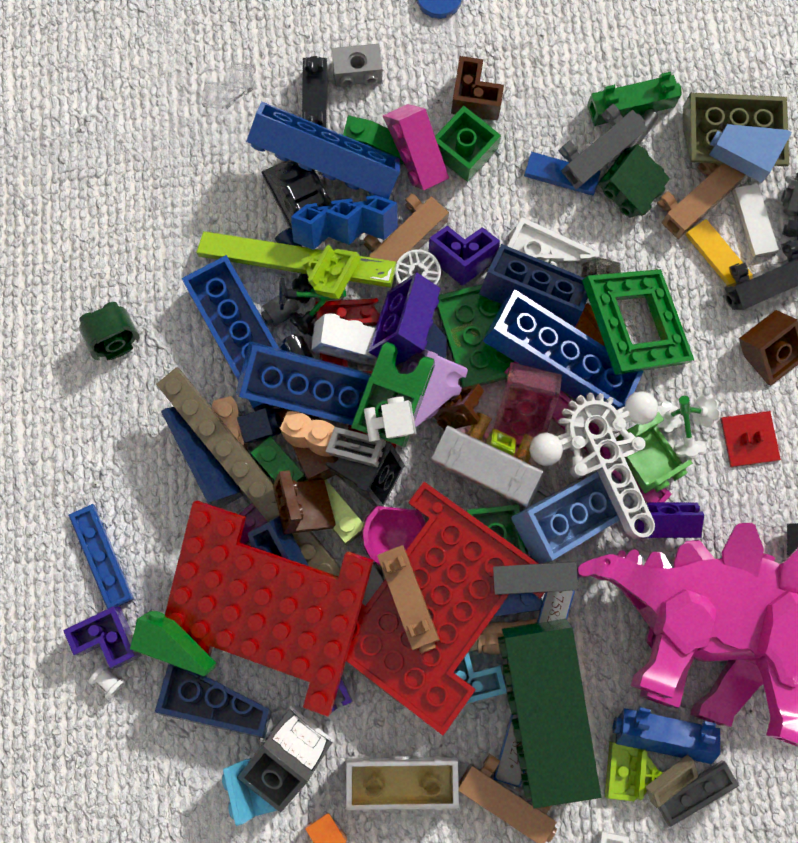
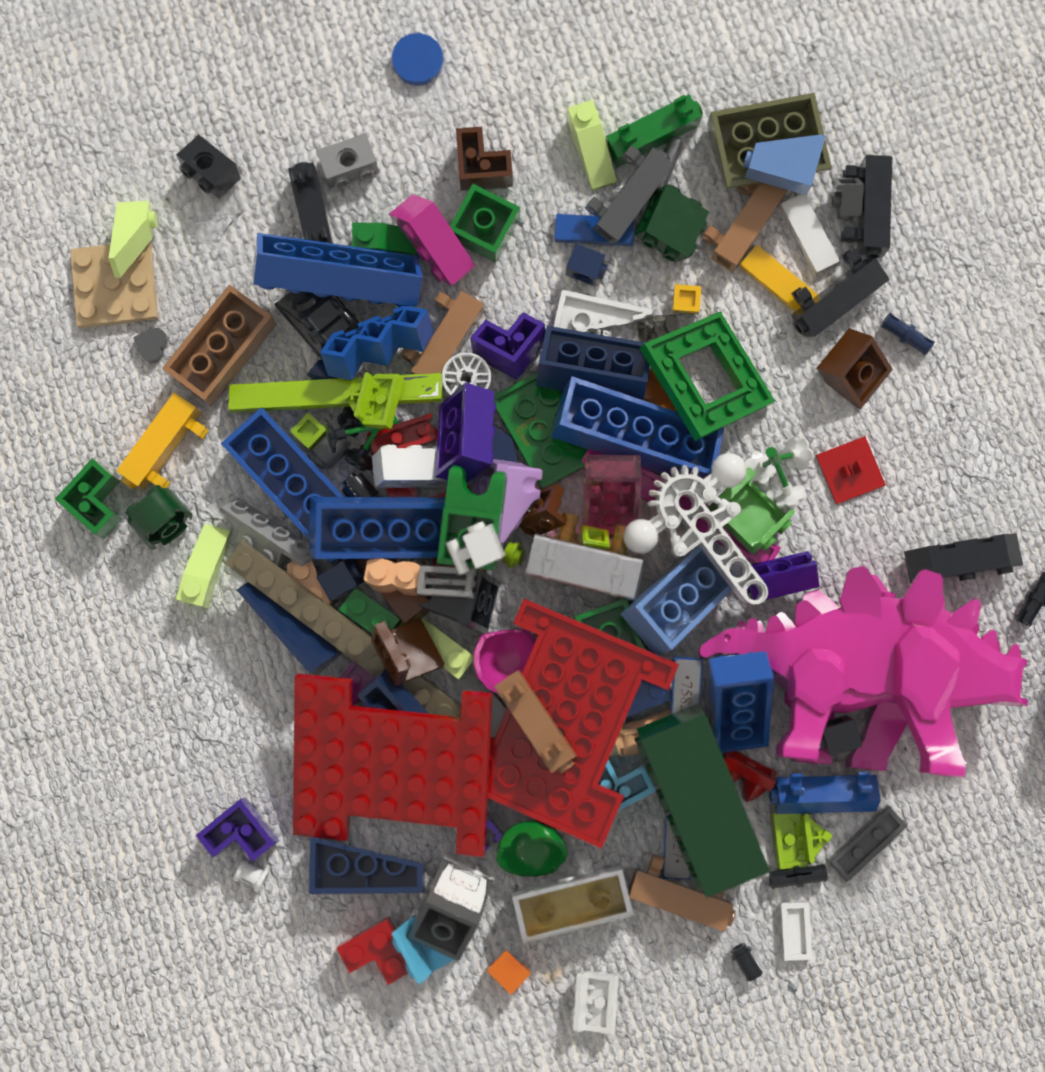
camera: 10 degrees left, 5 degrees up
(49, 297) = (85, 498): none -> green brick
(101, 556) = (212, 751): blue tile -> none
(125, 123) = (112, 300): none -> tan plate
(127, 267) = (159, 442): none -> yellow brick
(137, 387) = (203, 567): none -> yellowish green slope
(143, 182) = (151, 344): none -> dark grey tile
(149, 82) = (130, 234): none -> yellowish green slope
(168, 642) = (303, 821): green slope -> none
(202, 371) = (266, 535): none -> light grey bracket
(203, 195) = (220, 345): none -> medium nougat brick
(206, 777) = (377, 945): none -> red brick
(233, 42) = (221, 171): none -> black brick
(264, 288) = (309, 431): none -> lime plate
(375, 721) = (531, 849): none -> green cylinder
(423, 442) = (513, 554): none -> lime plate
(535, 578) = (658, 671): dark grey tile -> none
(548, 201) = (586, 265): none -> dark blue brick
(576, 100) = (591, 144): none -> yellowish green slope
(605, 702) = (757, 775): none -> red tile
(608, 624) = (740, 701): none -> blue brick
(624, 809) = (798, 876): none -> black pin
(632, 251) = (686, 299): none -> yellow plate
(672, 781) = (839, 837): dark tan tile -> none
(696, 682) = (840, 736): none -> black brick

